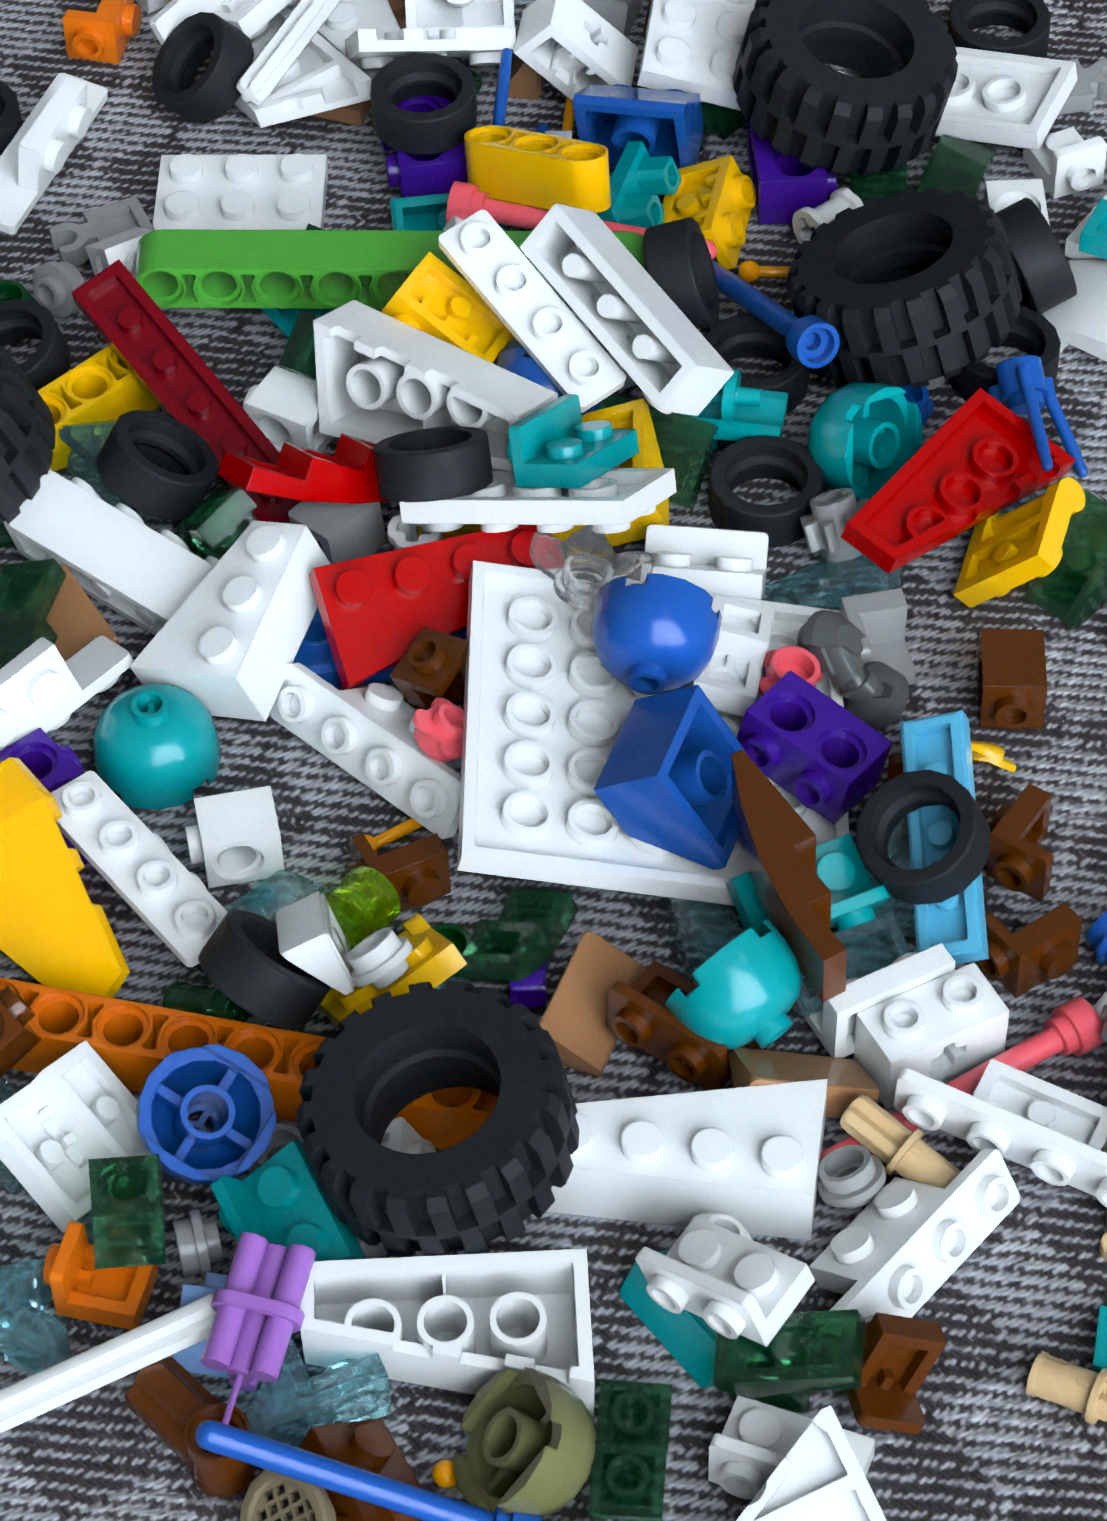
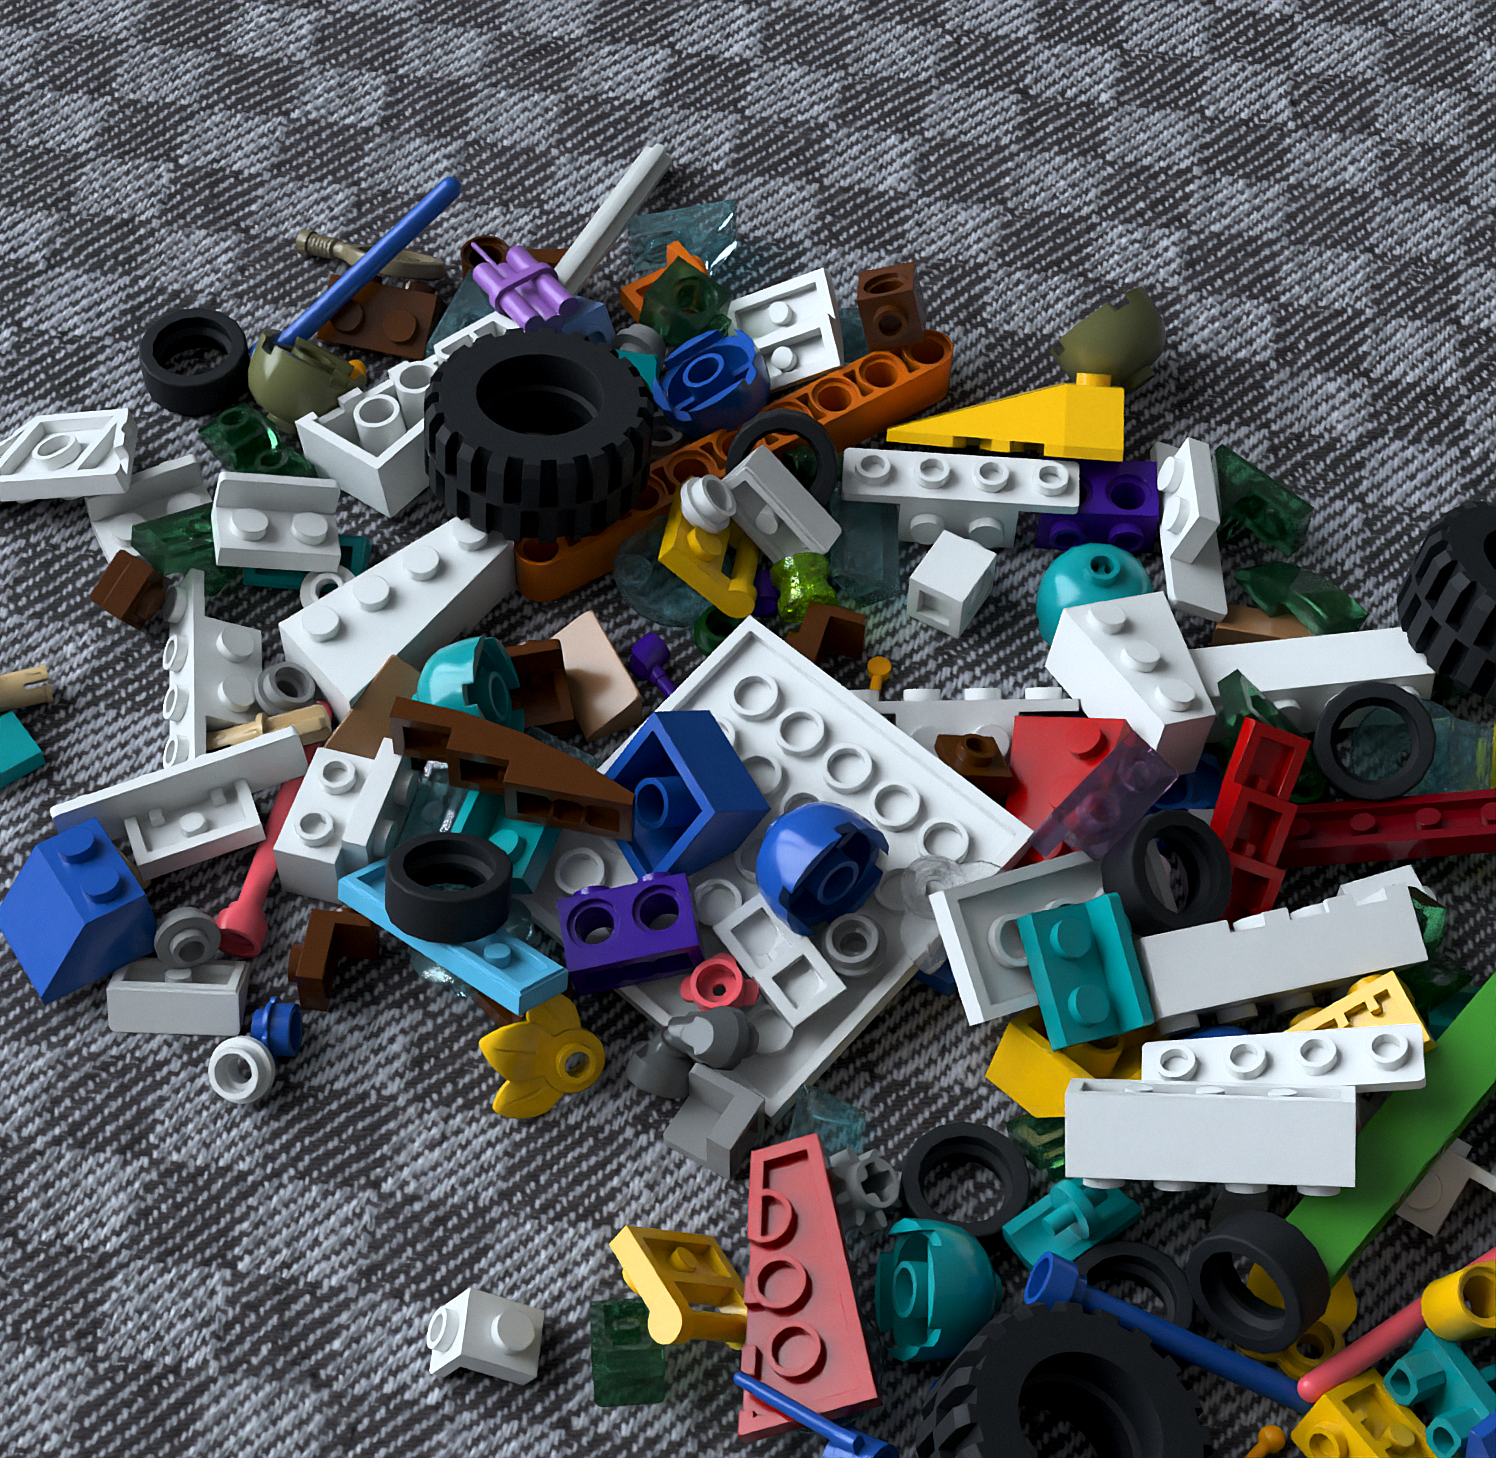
camera: 130 degrees right, 5 degrees up
(423, 509) = (1107, 800): none -> clear purple bracket
(440, 730) = (907, 707): coral plate -> none
(520, 937) = (673, 643): clear green slope -> none
(711, 558) = (911, 1057): white bracket -> none
(1011, 678) = (572, 1176): reddish brown brick -> none
(1015, 841) = (415, 1015): reddish brown bracket -> none

